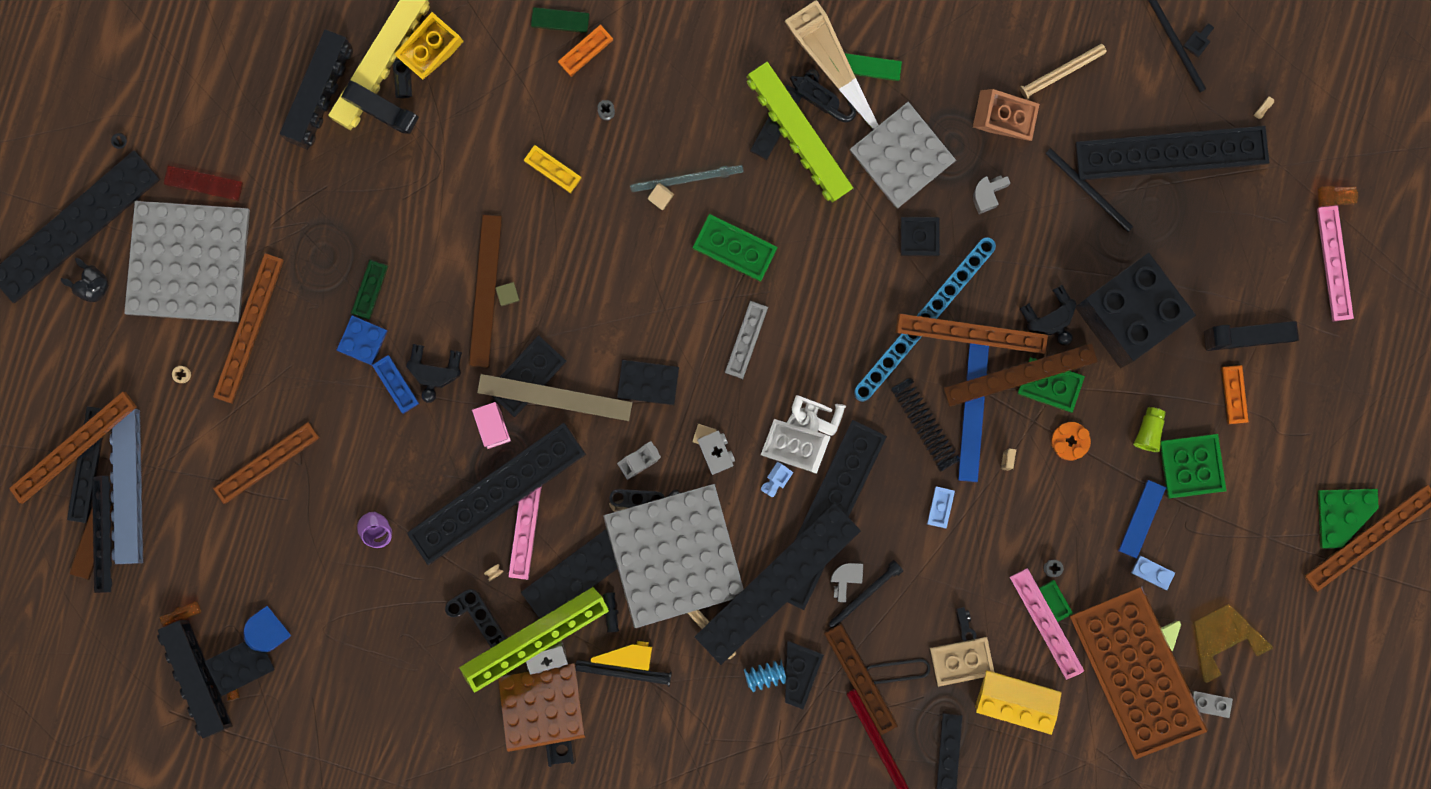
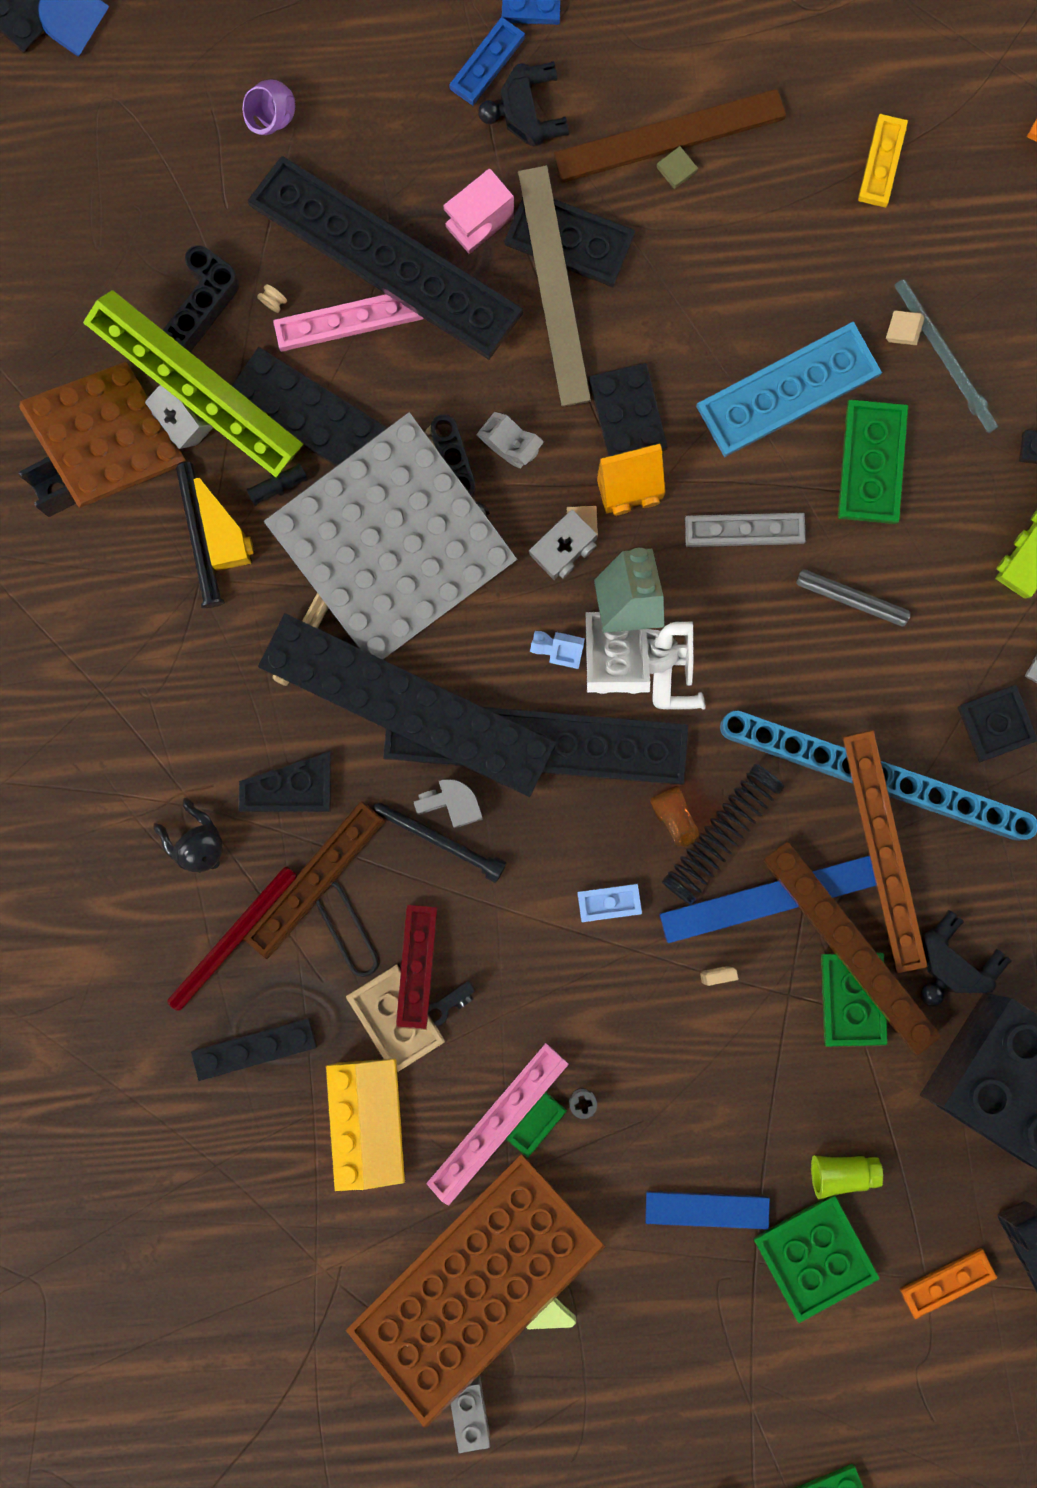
camera: 70 degrees right, 0 degrees up
(606, 104) = (1007, 197): dark grey bush -> none
(671, 280) = (788, 389): none -> dark azure plate
(694, 397) = (632, 479): none -> light orange slope
(762, 424) = (630, 592): none -> sand green slope
(766, 676) = (266, 739): dark azure piece -> none
(812, 291) = (853, 597): none -> dark grey axle
(818, 742) = (196, 849): none -> black hair
(904, 448) = (673, 811): none -> clear orange piece
(937, 637) = (416, 967): none -> dark red plate
(1080, 435) = (793, 1046): orange plate -> none
(1152, 572) = (633, 1256): light blue plate -> none
(1221, 631) = (584, 1392): clear yellow wing -> none

